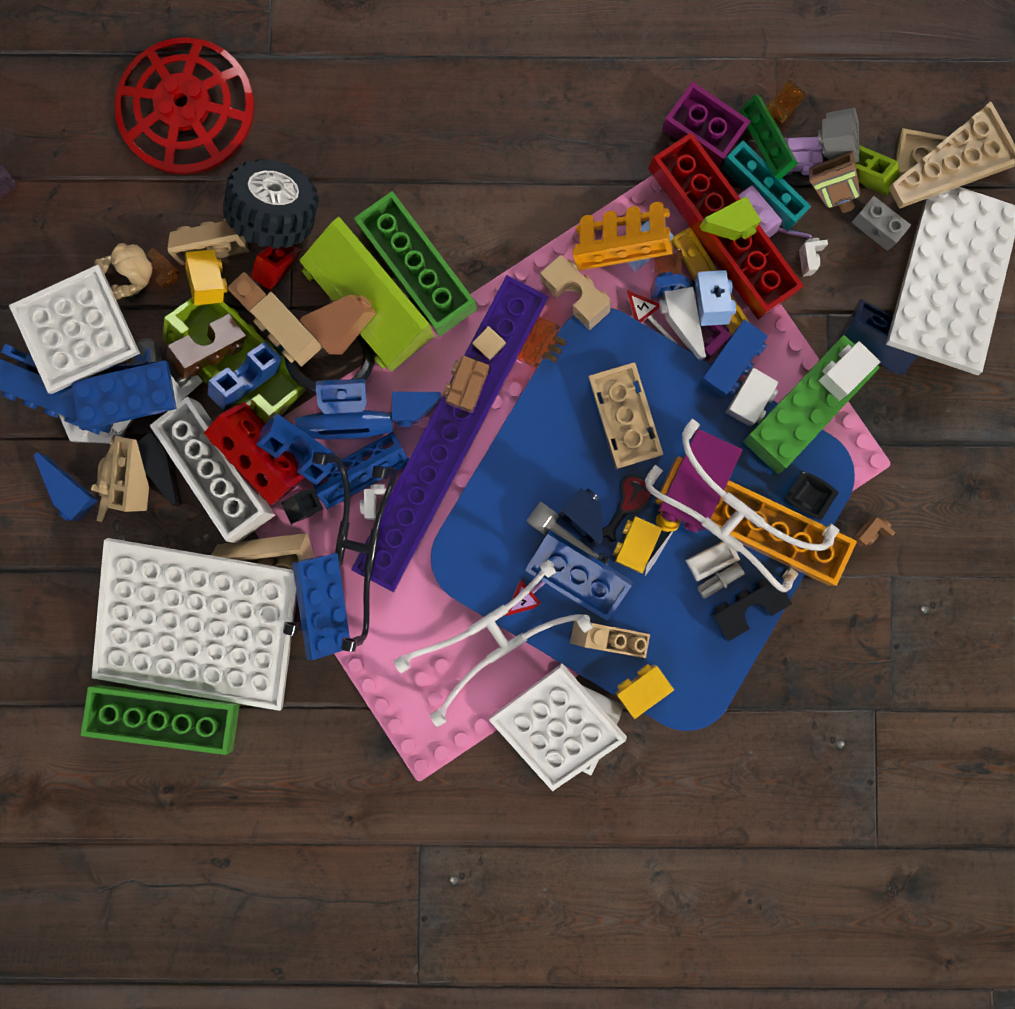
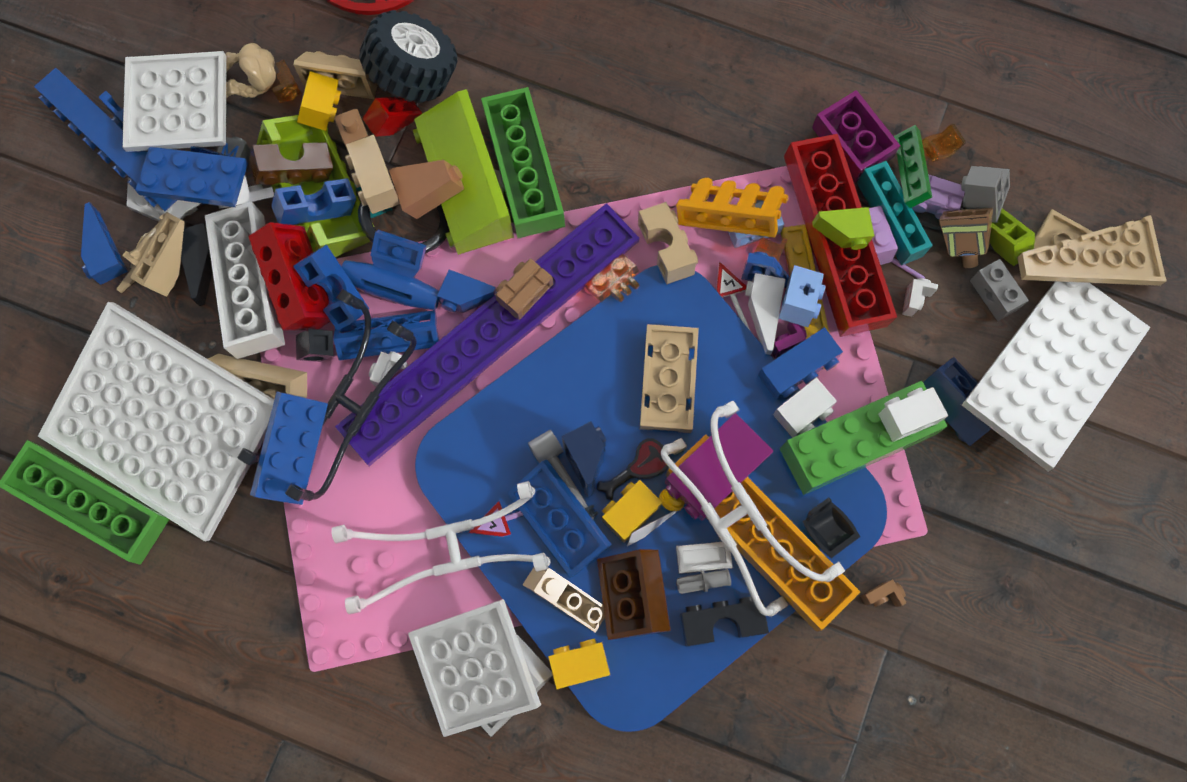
camera: 20 degrees right, 10 degrees down
(489, 343) = (562, 259): tan tile -> none
(666, 615) = (633, 594): none -> reddish brown slope

